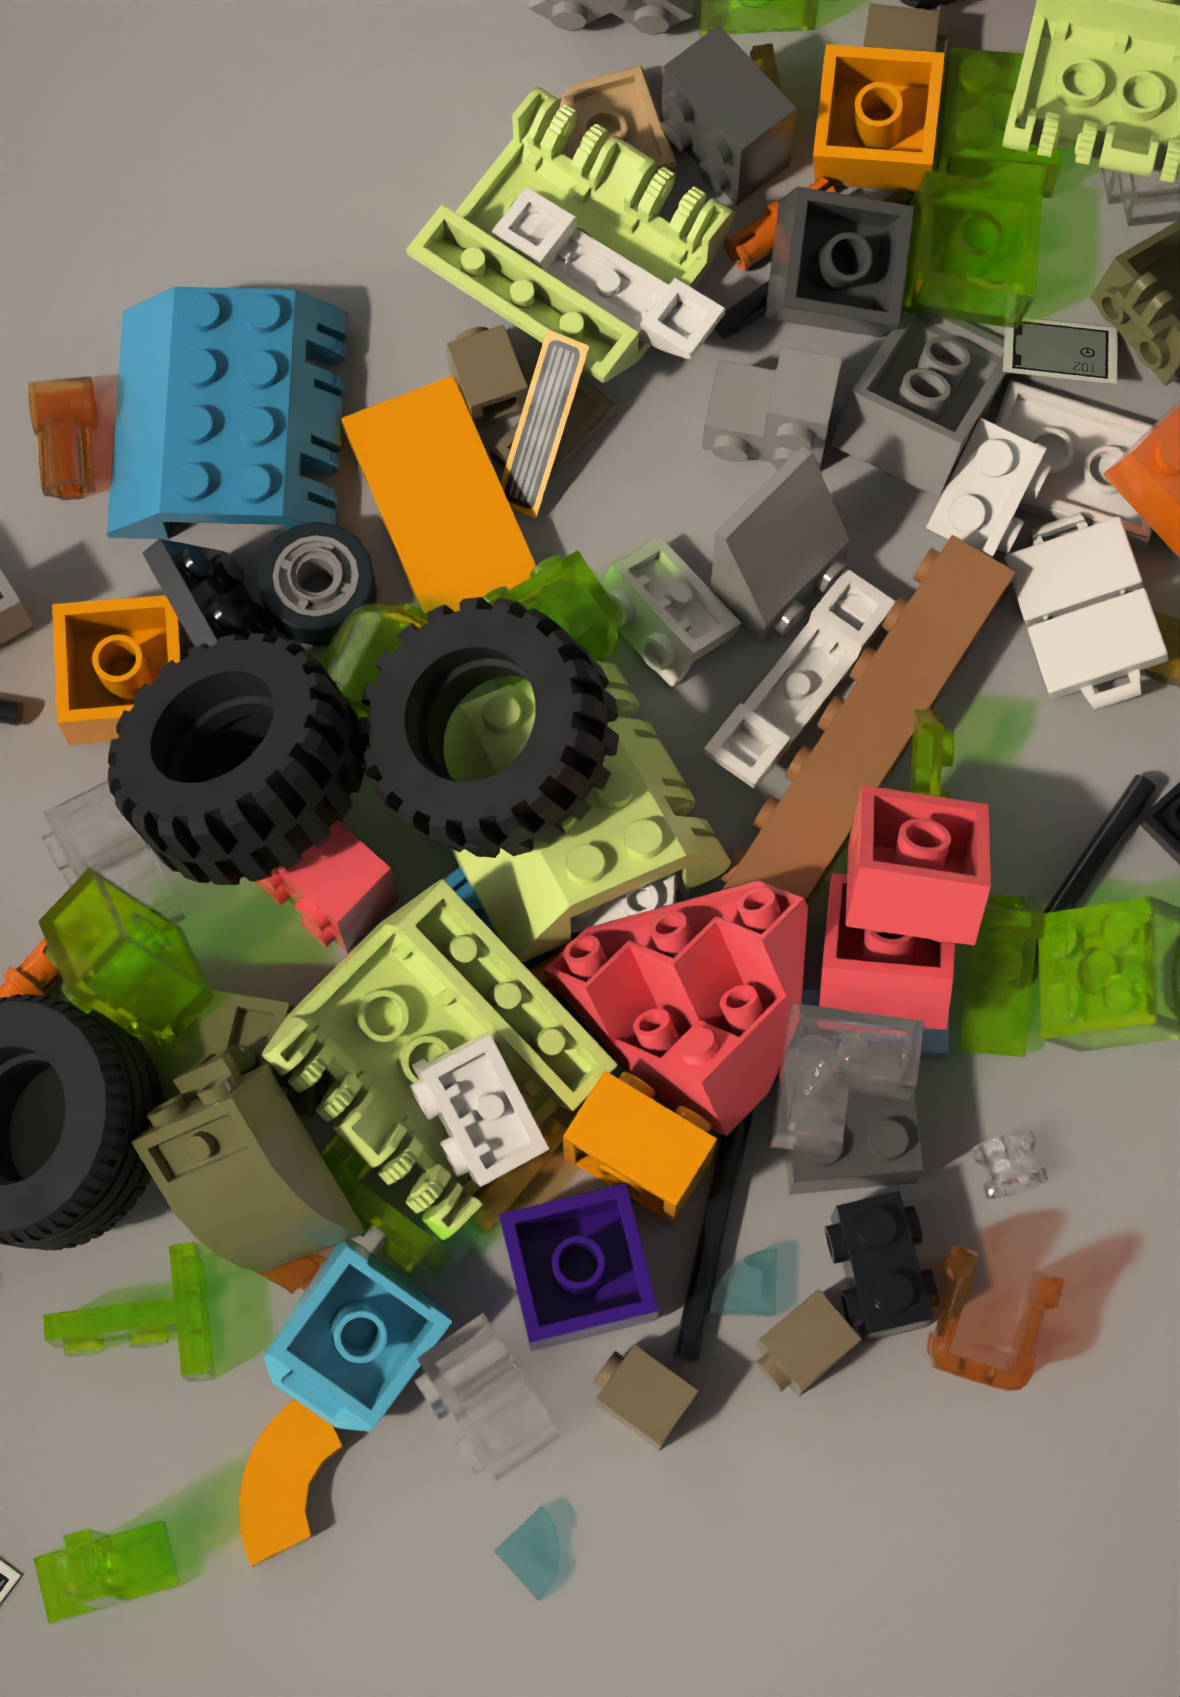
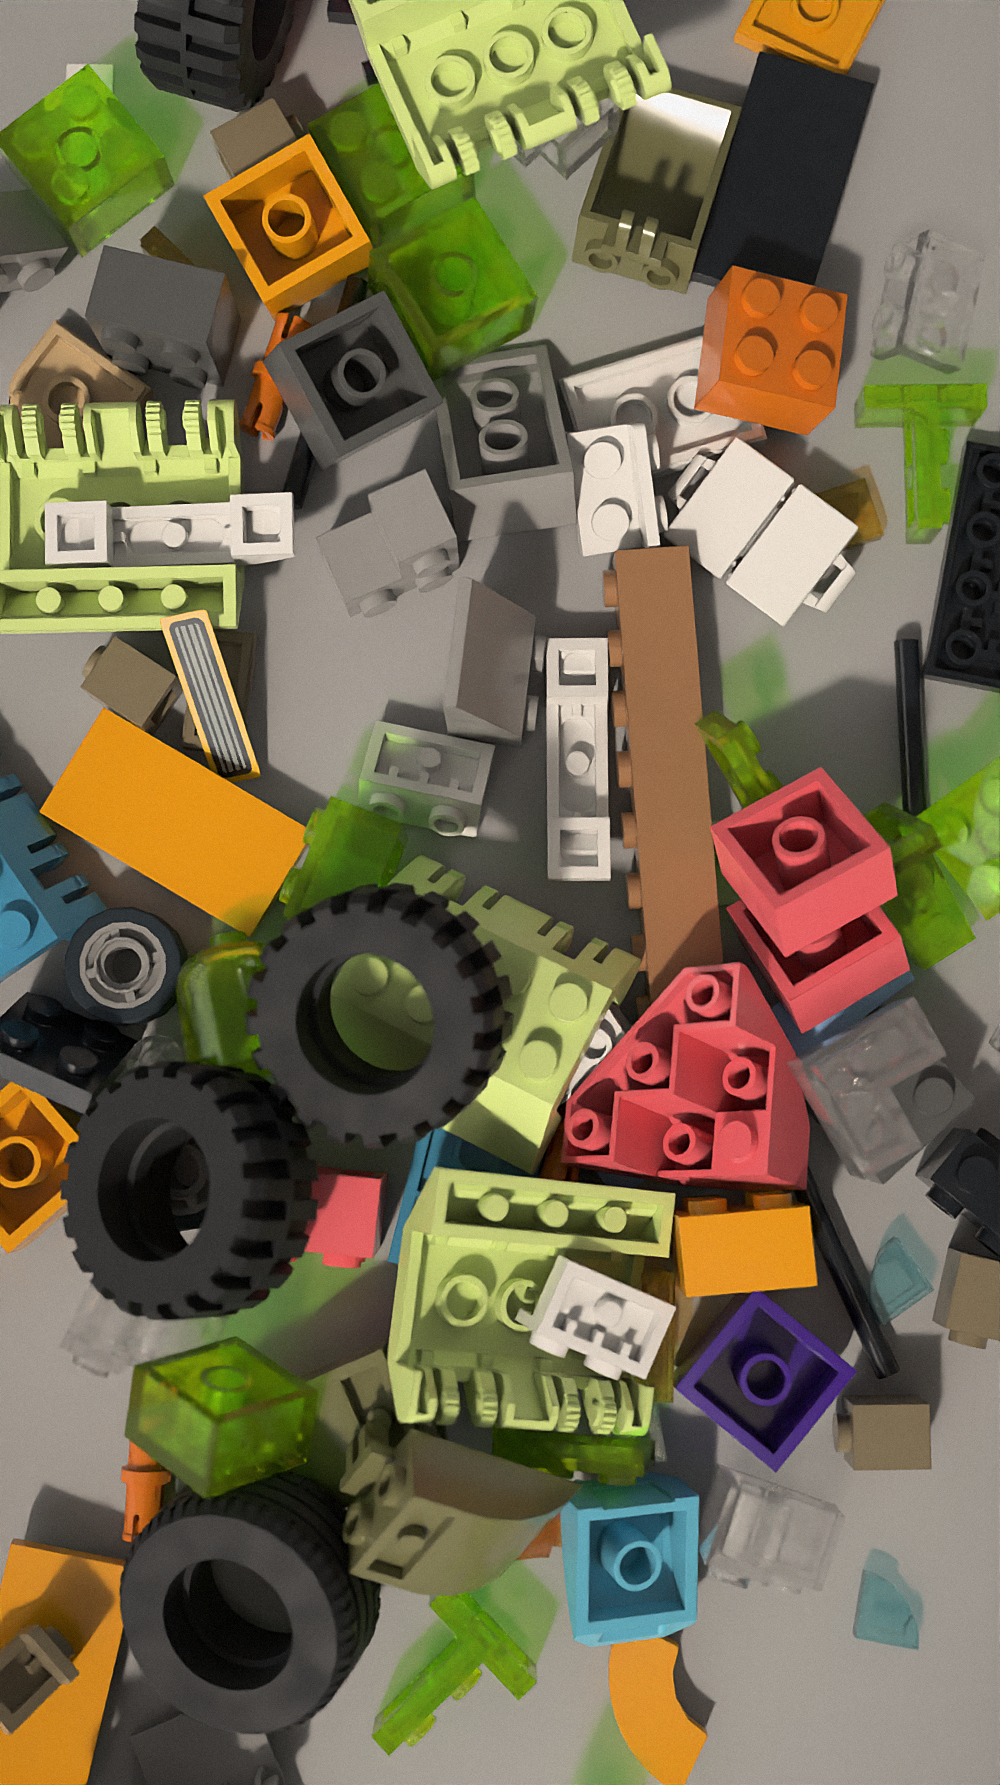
camera: 35 degrees left, 10 degrees up
(1062, 350) = (582, 324): sticker -> none

